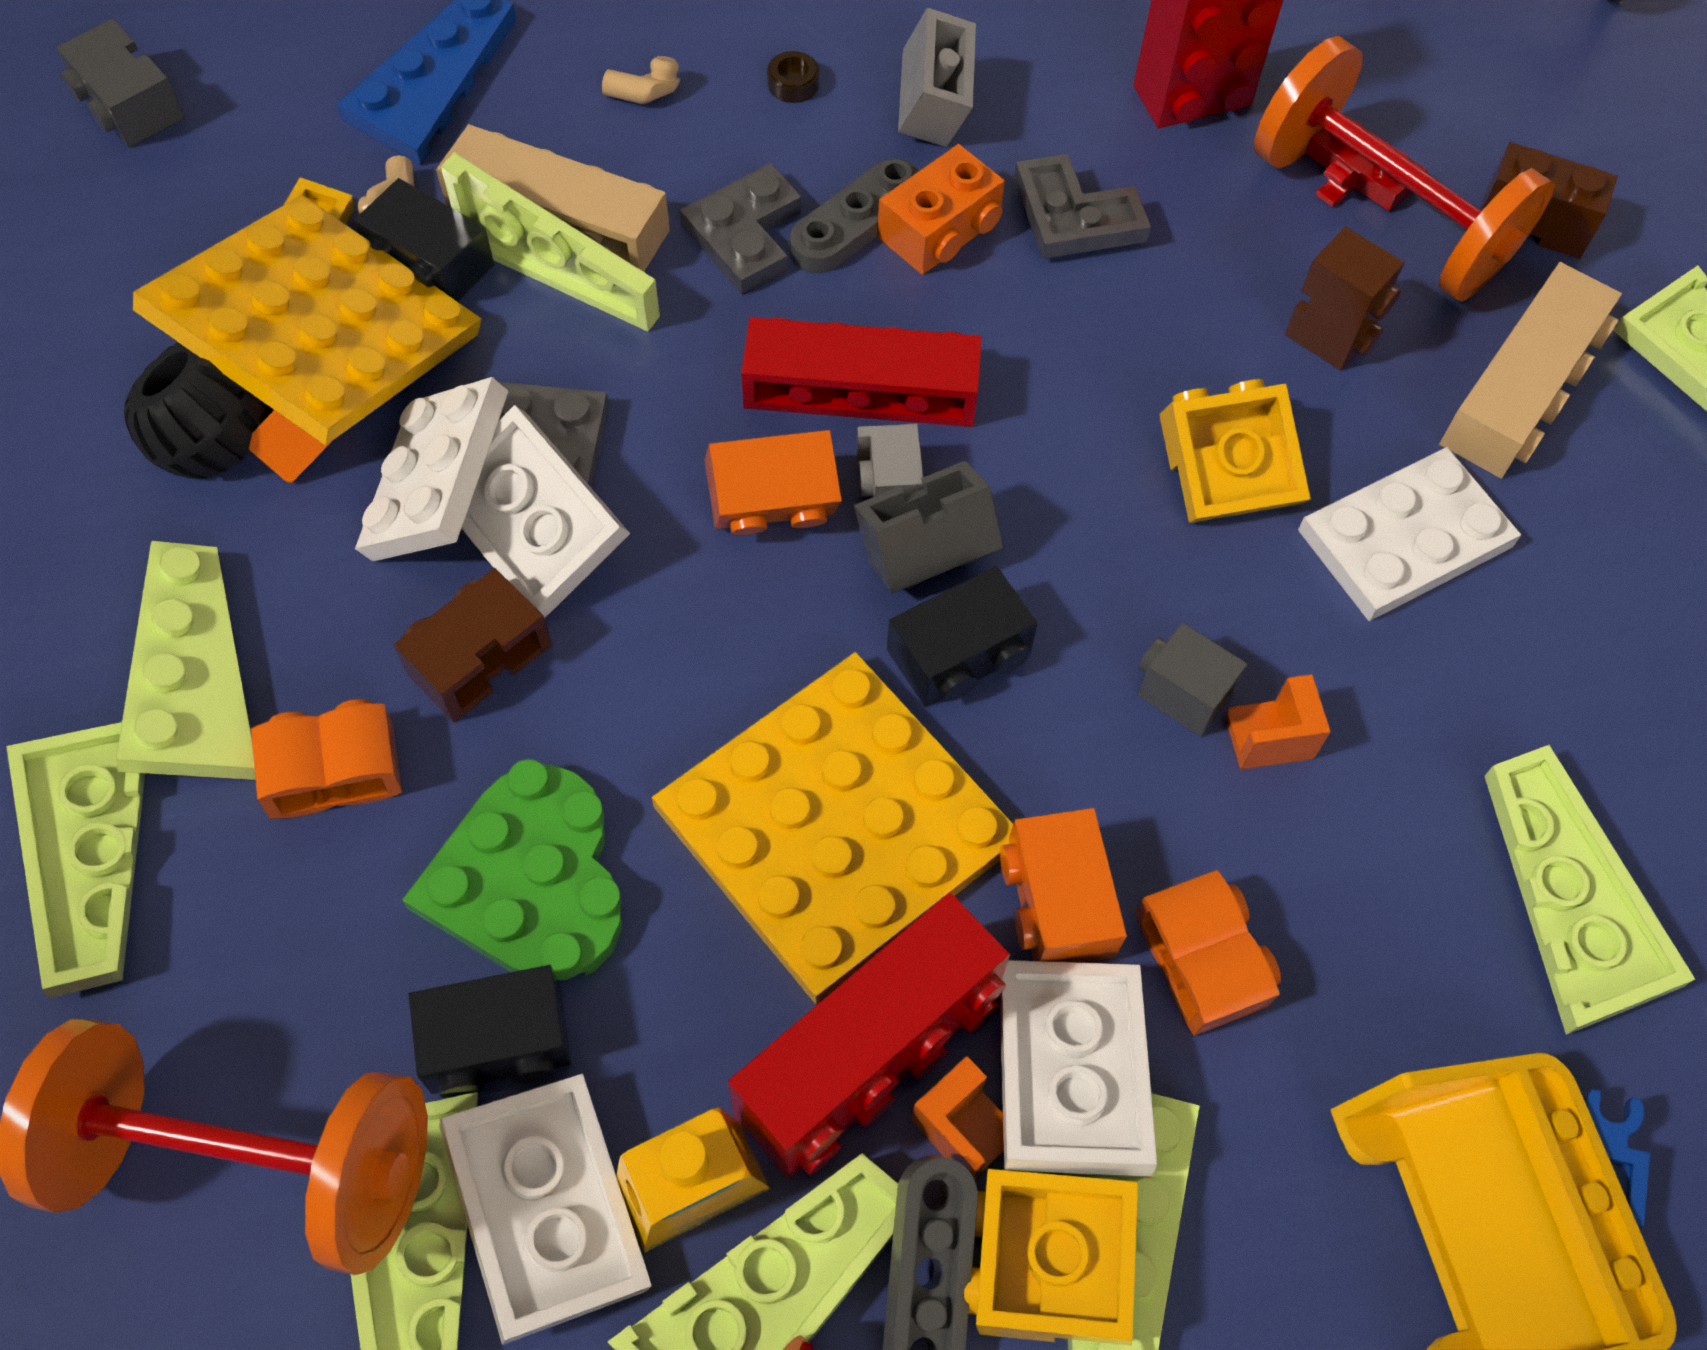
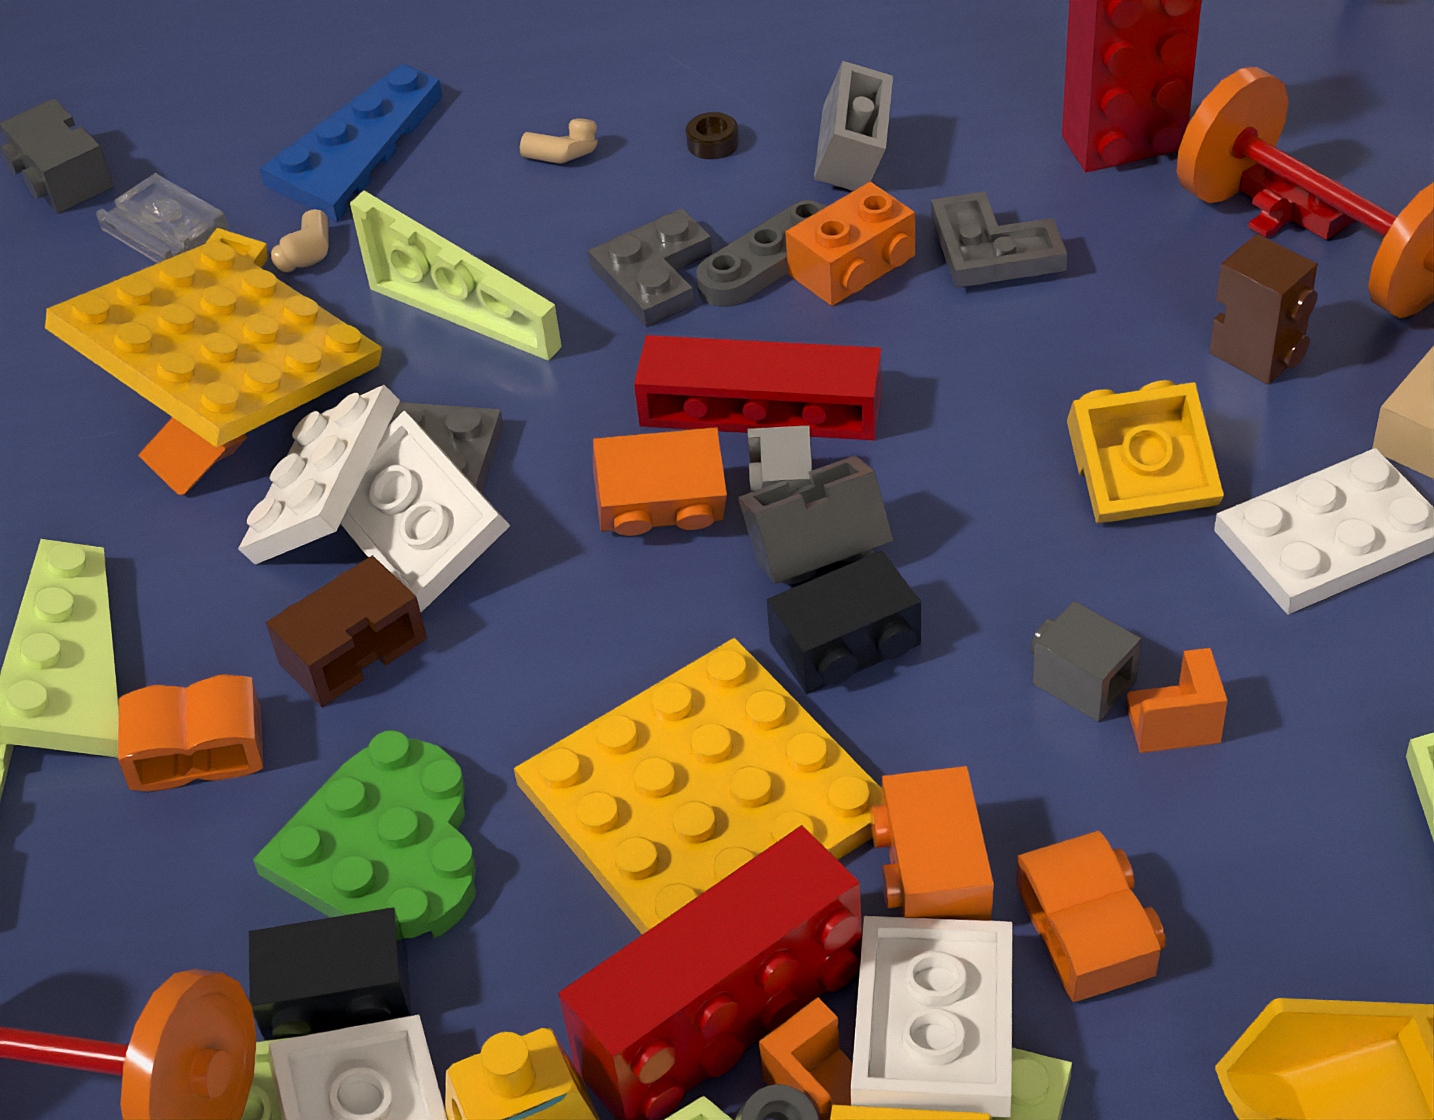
camera: 10 degrees right, 15 degrees down
(191, 415) = (93, 430): black wheel -> none
(240, 164) = (161, 219): none -> clear plate
(428, 238) = (337, 276): black brick -> none
(605, 207) = (516, 245): tan brick -> none

